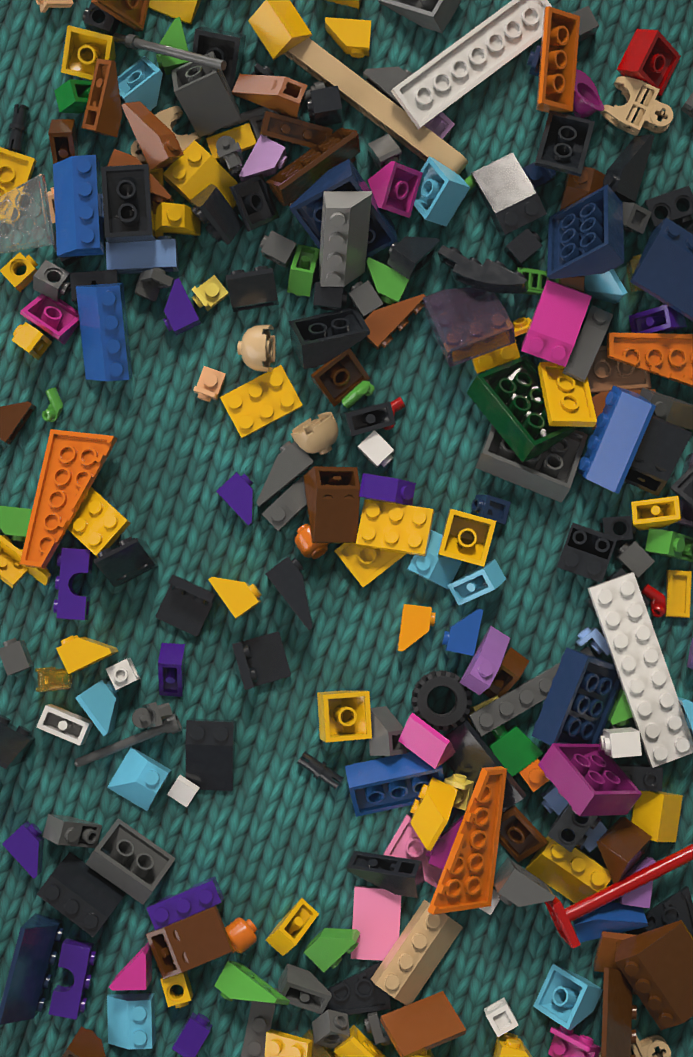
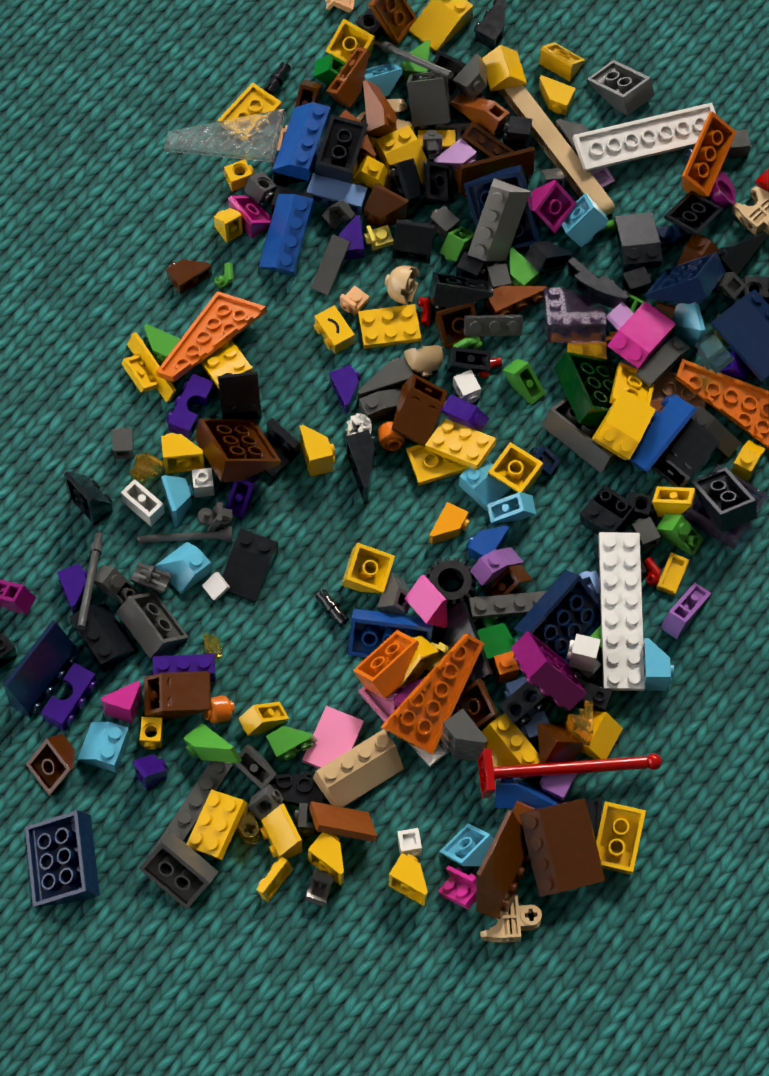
camera: 15 degrees right, 20 degrees down
(35, 797) = (95, 551): none -> dark grey bar
(108, 809) = (151, 577): none -> dark grey hips
(146, 625) = (235, 448): none -> reddish brown slope
(168, 352) = (330, 264): none -> dark grey tile
(201, 431) = (334, 330): none -> yellow brick
(204, 257) = (385, 207): none -> reddish brown slope
(205, 862) = (212, 645): none -> clear yellow slope
(248, 52) = (472, 77): none -> dark grey slope
(261, 660) = (316, 510): black bracket -> none
(281, 548) = (360, 420): none -> white gear
(297, 368) = (426, 311): none -> red arm
(379, 363) = (493, 325): none -> dark grey plate
(391, 873) = (360, 702): black slope -> none
(408, 829) = (387, 664): none -> orange slope
(437, 418) = (524, 380): none -> bright green slope
(521, 306) = (619, 315): none -> lavender slope
(576, 450) = (624, 425): none -> yellow slope
(643, 313) = (713, 353): none -> clear light blue brick
(647, 822) = (582, 724): none -> clear yellow slope

